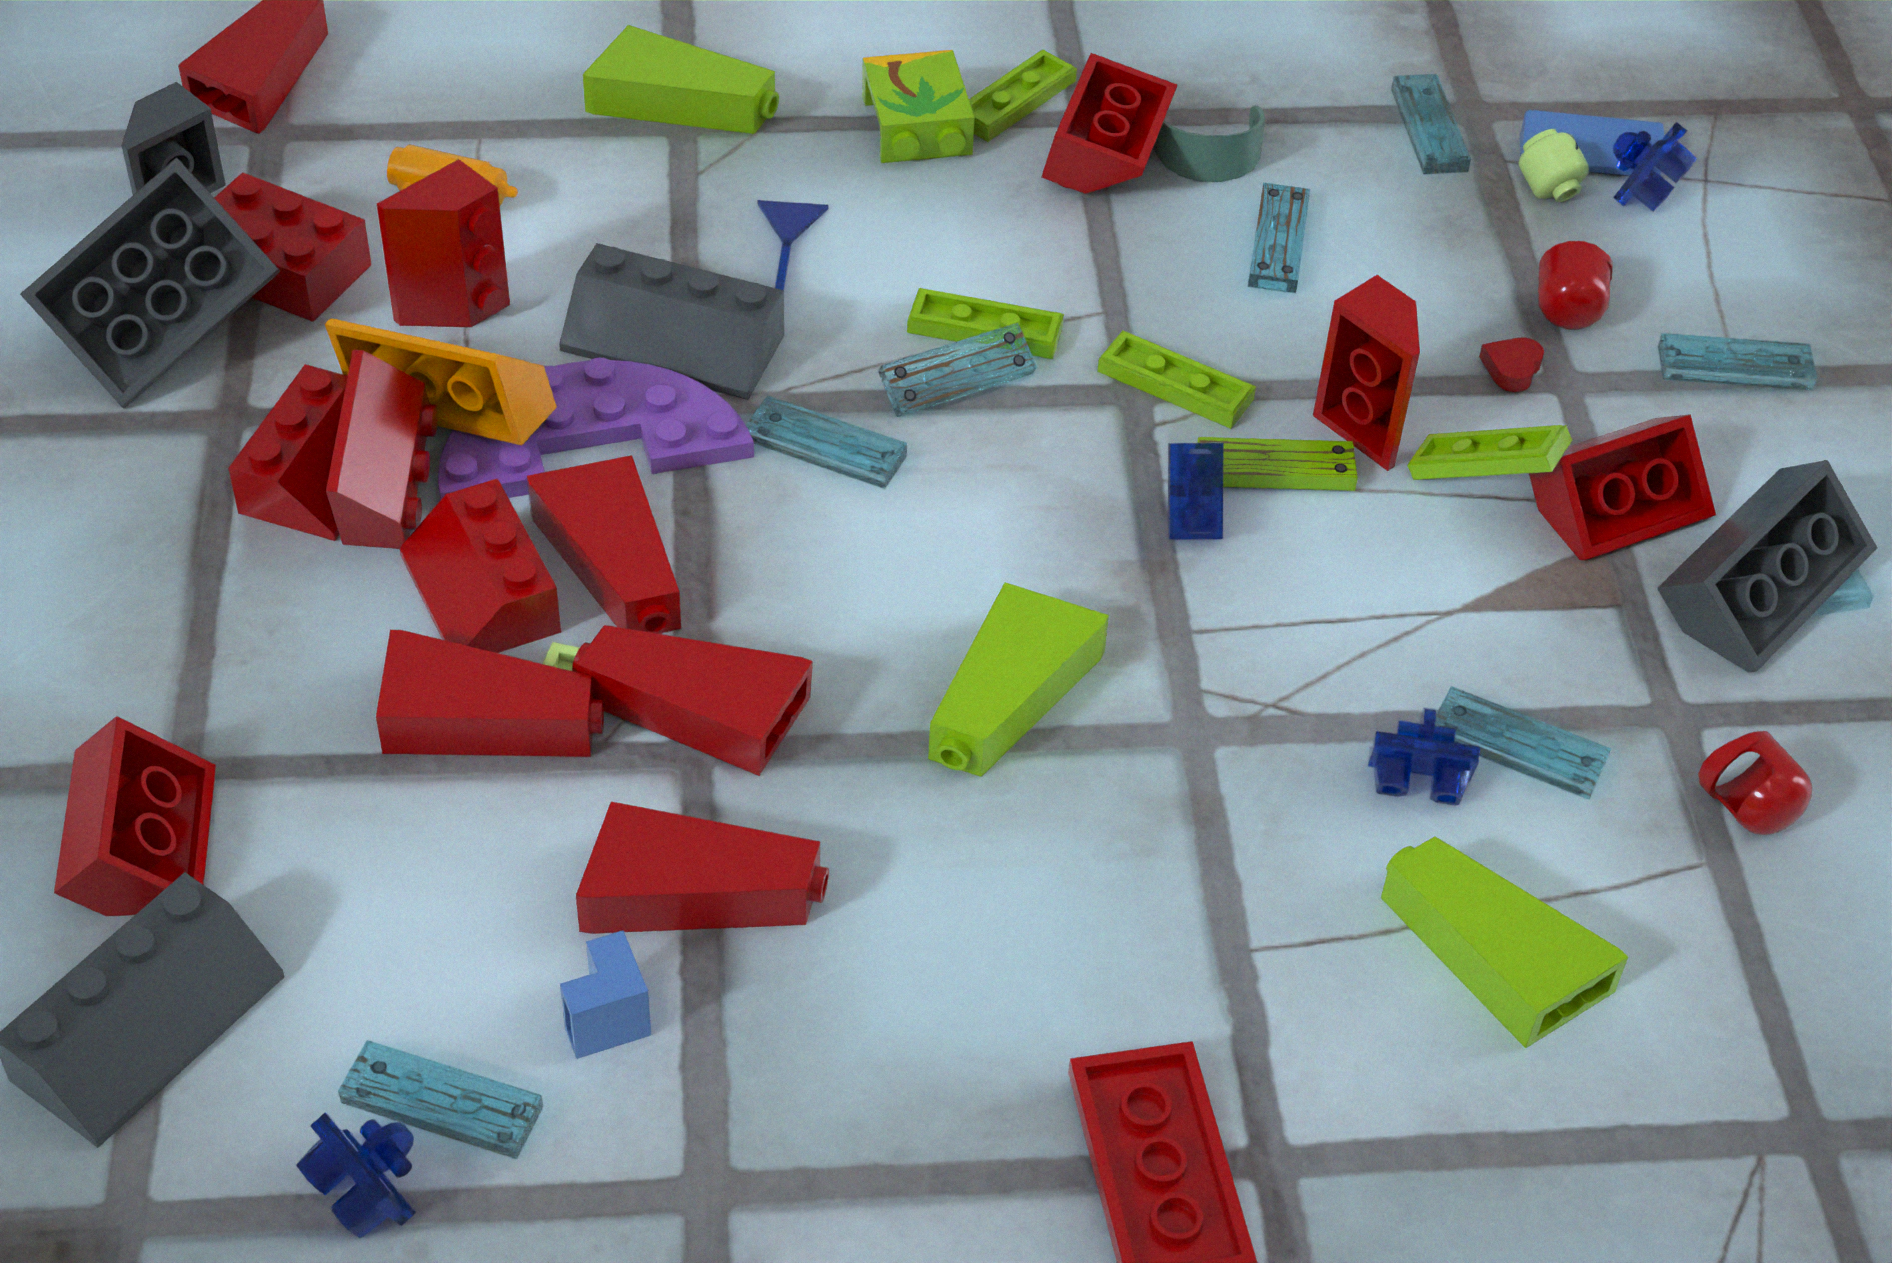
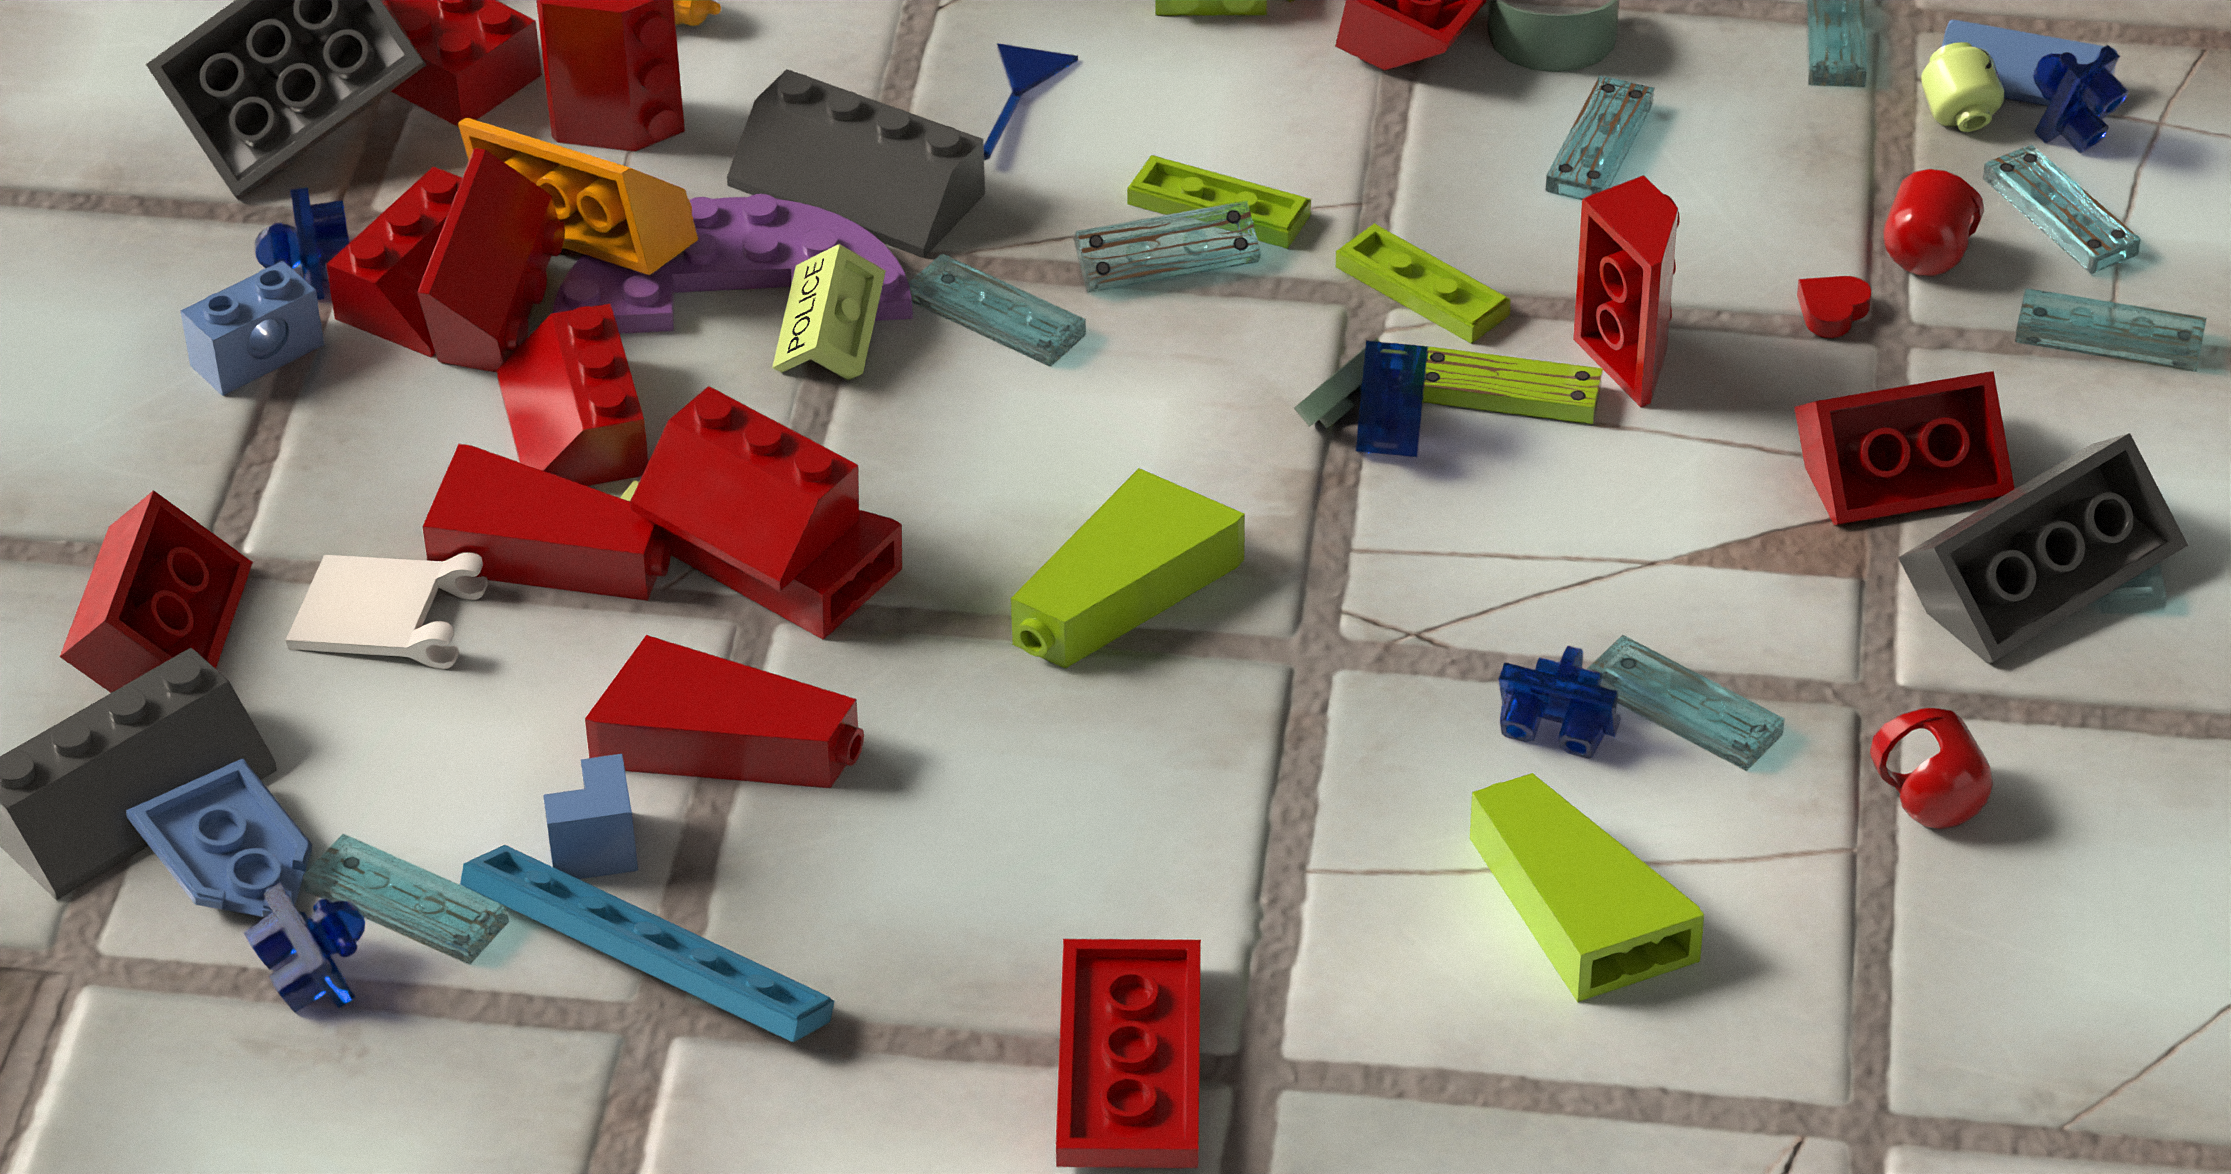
camera: 15 degrees right, 5 degrees down
(168, 534) = (252, 328): none -> medium blue brick
(183, 450) = (313, 242): none -> clear blue hips
(256, 1066) = (225, 840): none -> medium blue tile
(347, 796) = (382, 607): none -> white flag
(610, 540) = (713, 346): red slope -> none
(673, 648) = (747, 488): none -> red slope
(685, 1116) = (648, 943): none -> dark azure tile
(688, 462) = (830, 313): none -> yellowish green panel
(1139, 488) = (1331, 398): none -> sand green plate
(1490, 452) = (1749, 392): lime tile -> none
(1661, 261) = (2061, 209): none -> clear light blue tile

